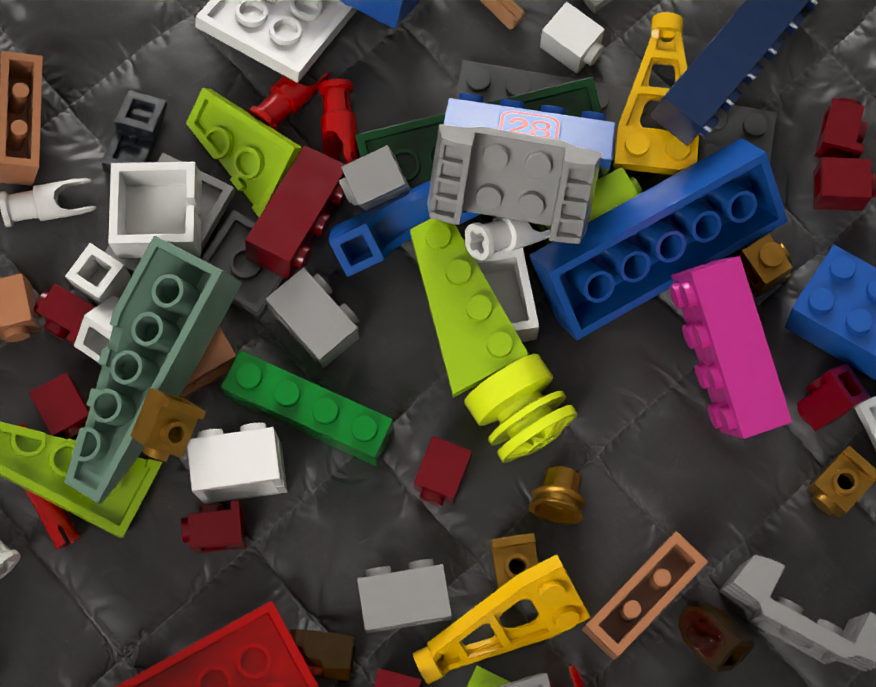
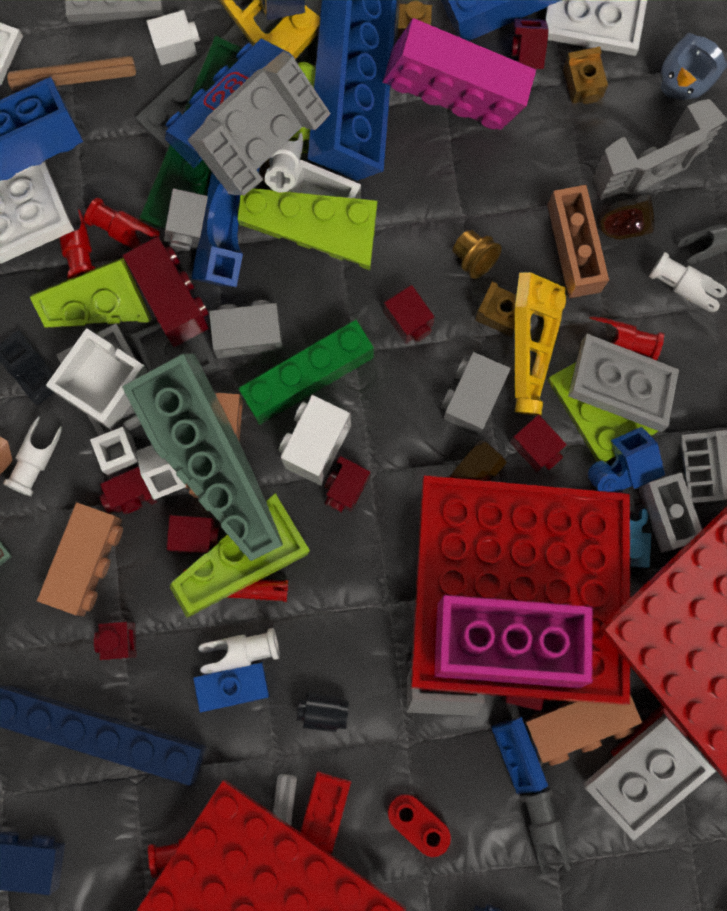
camera: 55 degrees left, 5 degrees up
(165, 424) = (261, 463): pearl gold brick -> none
(523, 412) = (405, 235): neon yellow wheel -> none

